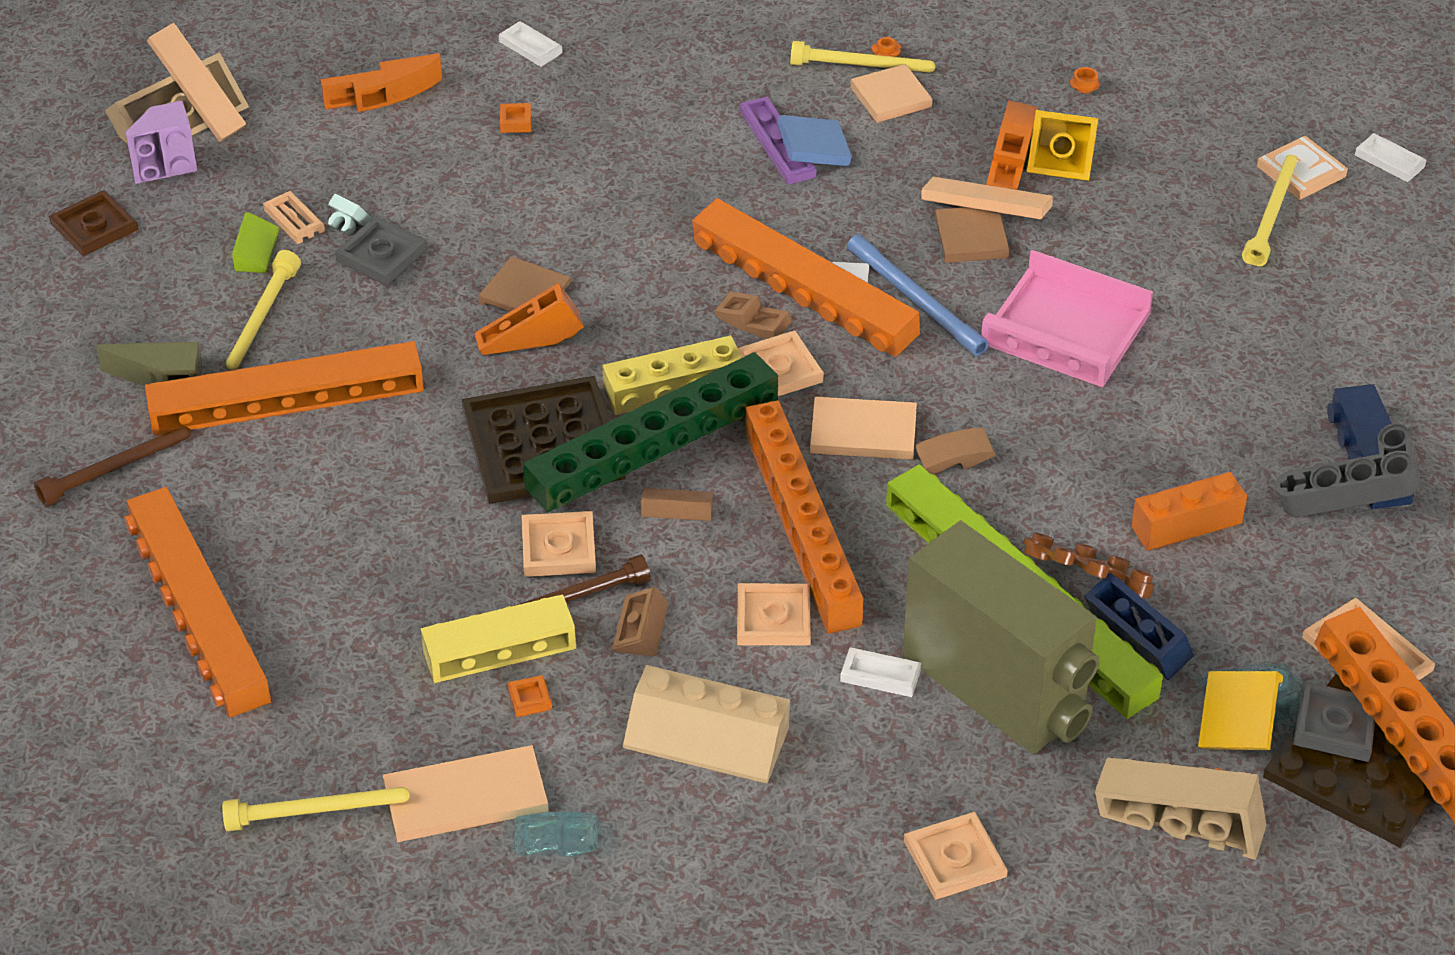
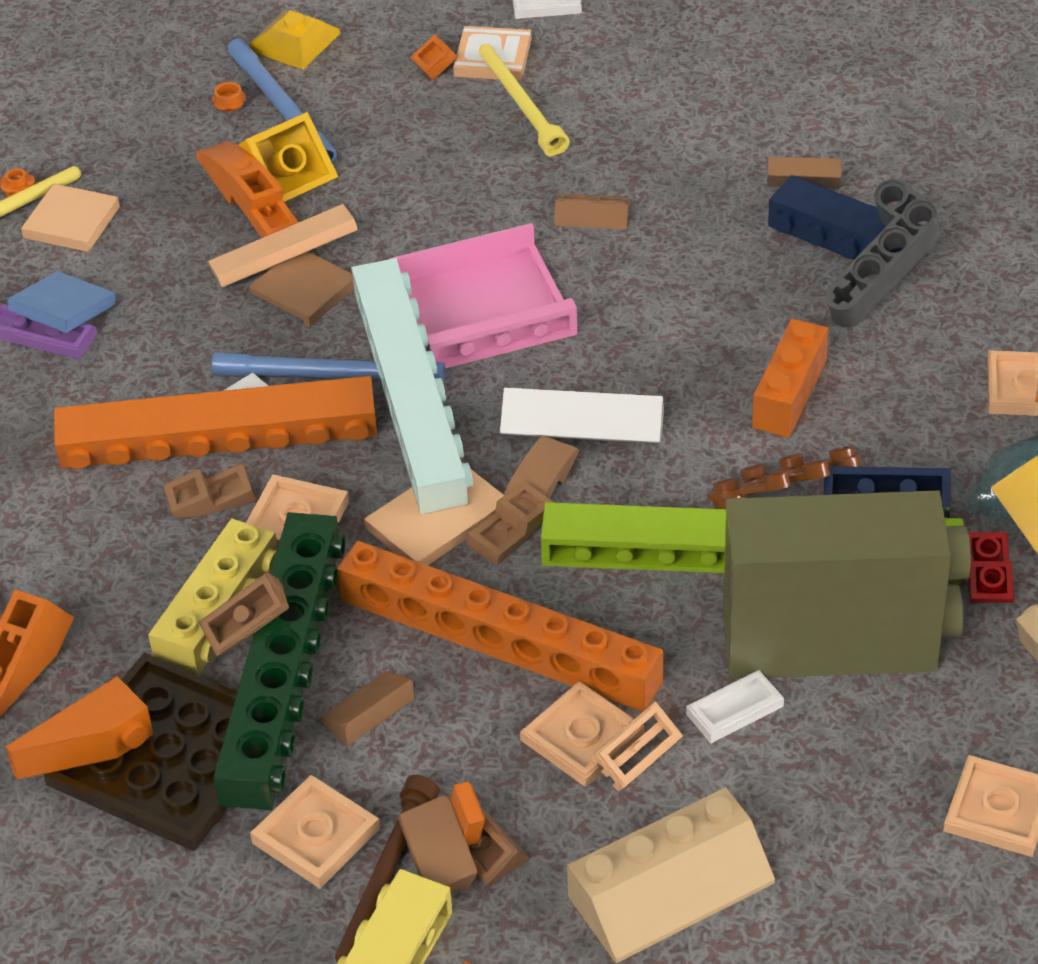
camera: 45 degrees left, 0 degrees up
(503, 391) = (84, 733): none -> orange slope
(605, 604) = (438, 844): none -> medium nougat slope
(634, 595) = (468, 811): none -> orange tile
(653, 388) = (244, 614): none -> medium nougat slope
(758, 644) = (611, 767): none -> light nougat tile
(884, 466) = (513, 522): none -> medium nougat slope
(935, 335) = (410, 387): none -> light aqua brick
(1024, 437) = (582, 415): none -> white brick
(1130, 66) = (249, 62): none -> medium blue piece
(1153, 724) = (990, 568): none -> red slope
(1182, 69) = (294, 39): none -> yellow slope
(1221, 316) = (592, 211): none -> medium nougat slope
(1254, 142) = (434, 57): none -> orange tile
(1395, 390) = (820, 171): none -> medium nougat slope

